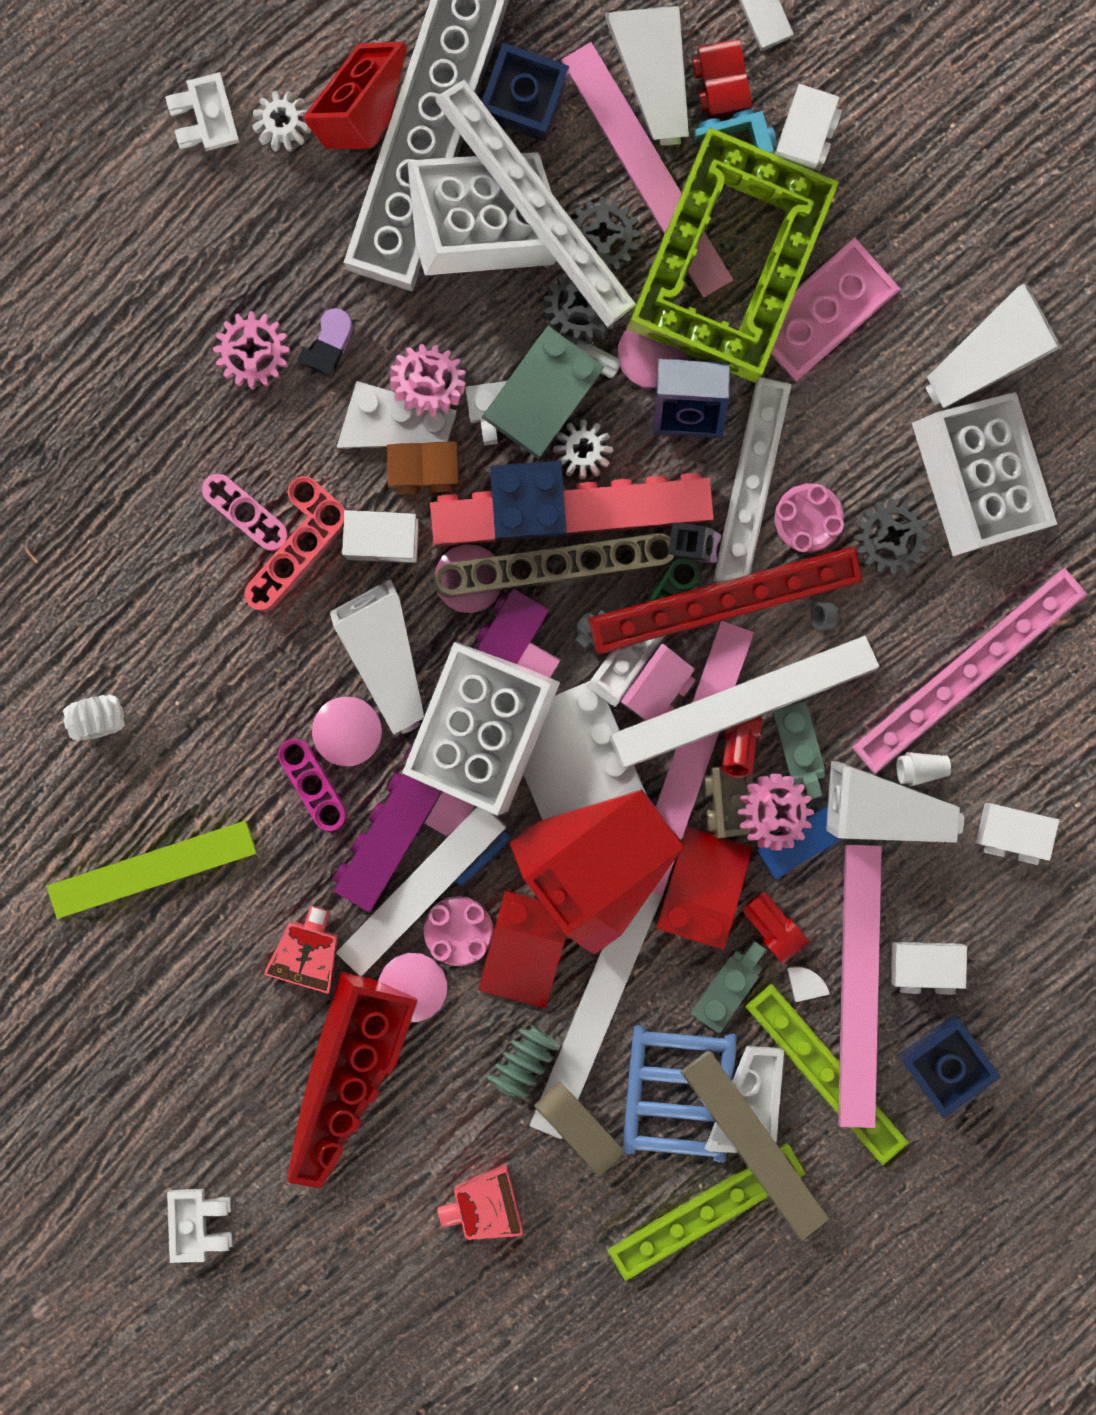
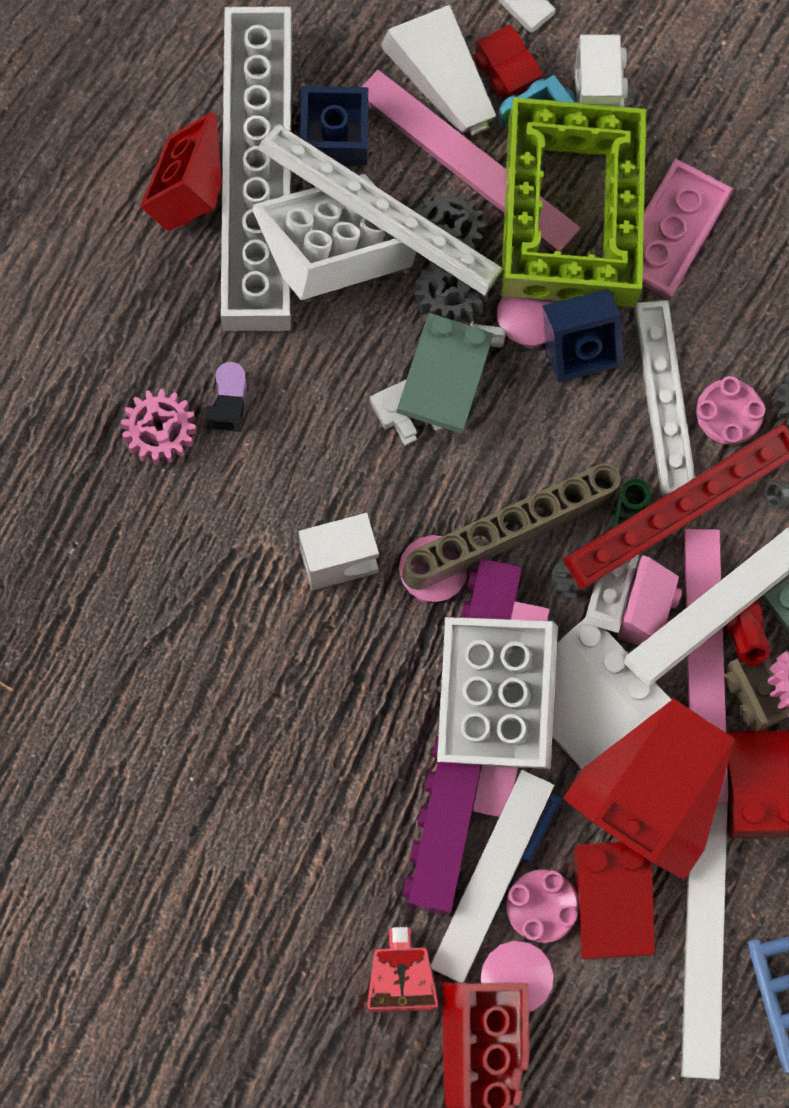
camera: 15 degrees left, 15 degrees down
(93, 717) = (116, 813): white gear -> none
(151, 869) = (218, 948): lime tile -> none
(211, 110) = (54, 233): white plate -> none
(231, 488) = (227, 576): bright pink beam -> none
(272, 111) = (107, 220): white gear -> none
(291, 550) = (256, 595): coral beam -> none
(298, 774) = (345, 793): dark pink beam -> none
(346, 731) = (366, 749): bright pink dish -> none
(379, 420) = (311, 448): white wing -> none
(379, 647) = (375, 659): white slope -> none
(423, 466) = (355, 479): dark orange brick -> none
(427, 380) = (332, 400): bright pink gear -> none
(524, 1062) = (653, 1013): sand green piece -> none
(528, 500) = (467, 469): dark blue brick -> none
(579, 1129) = (734, 1059): dark tan beam -> none
(586, 509) = (508, 475): coral brick -> none
(591, 458) = (496, 429): white gear -> none
(694, 542) = (635, 460): black leg -> none

